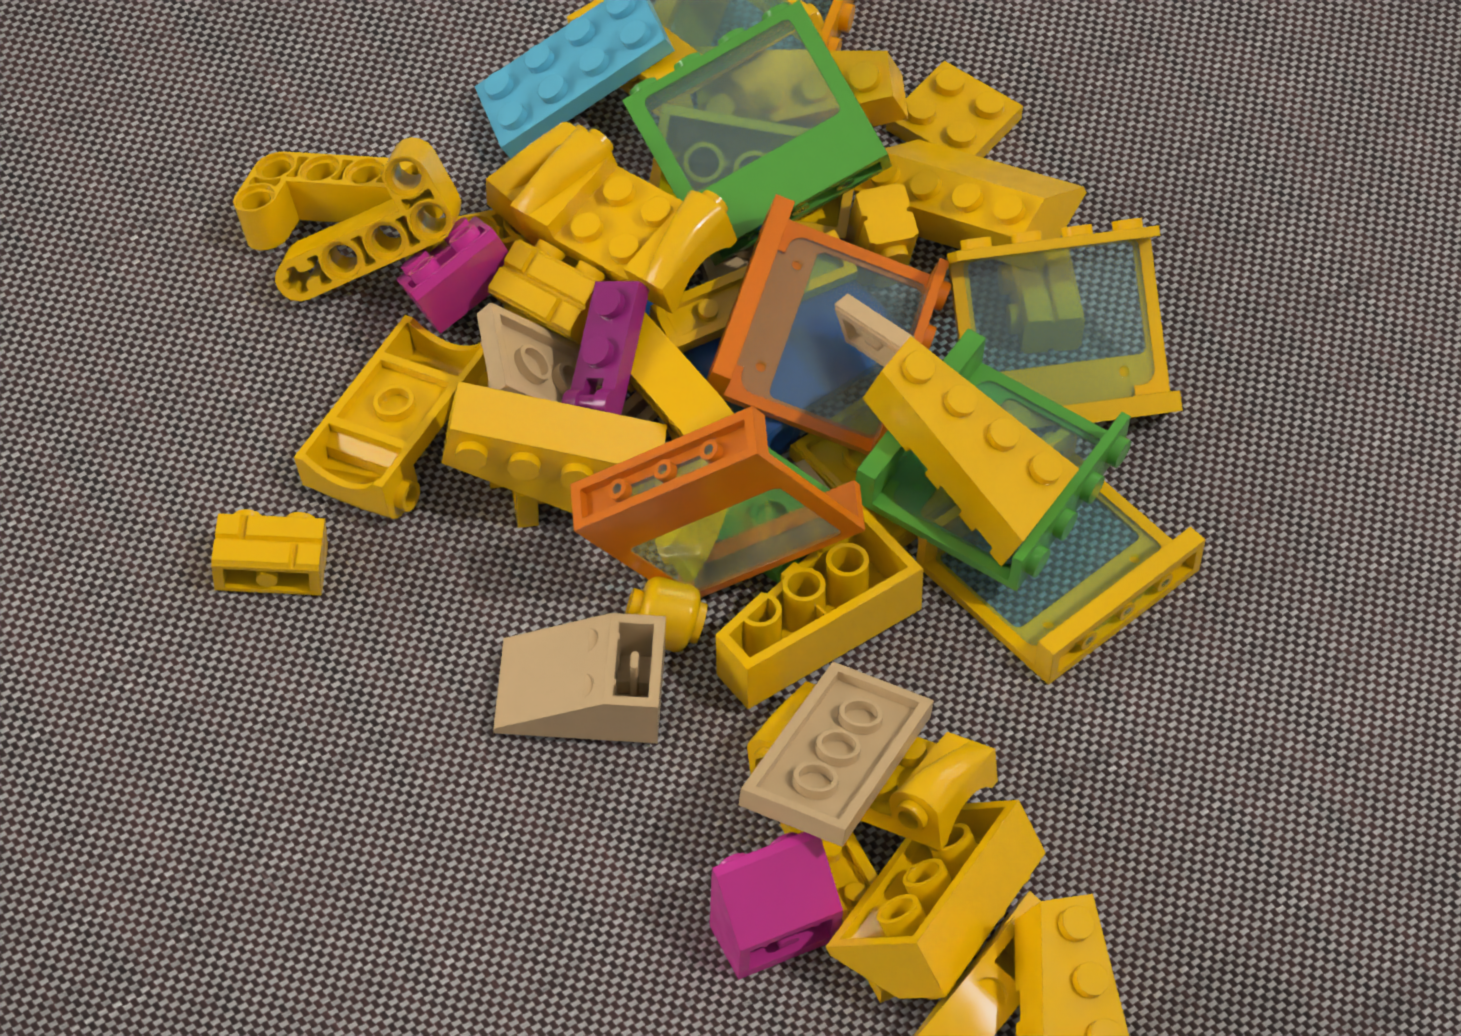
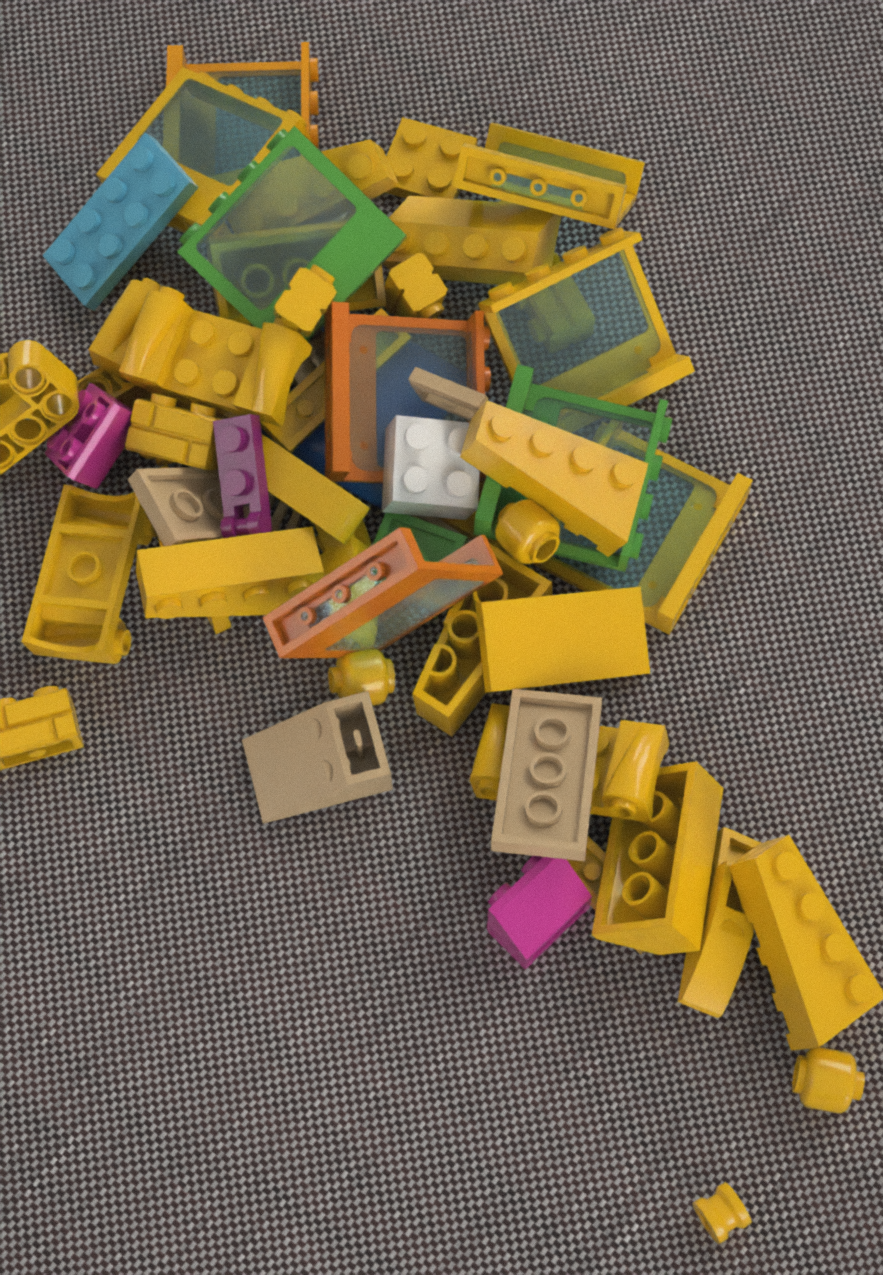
camera: 15 degrees left, 15 degrees up
(747, 181) = (306, 299): none -> yellow brick
(821, 410) = (426, 470): none -> white brick
(914, 505) = (527, 532): none -> yellow head
(914, 633) = (562, 638): none -> yellow tile
(1087, 154) = (550, 175): none -> yellow panel

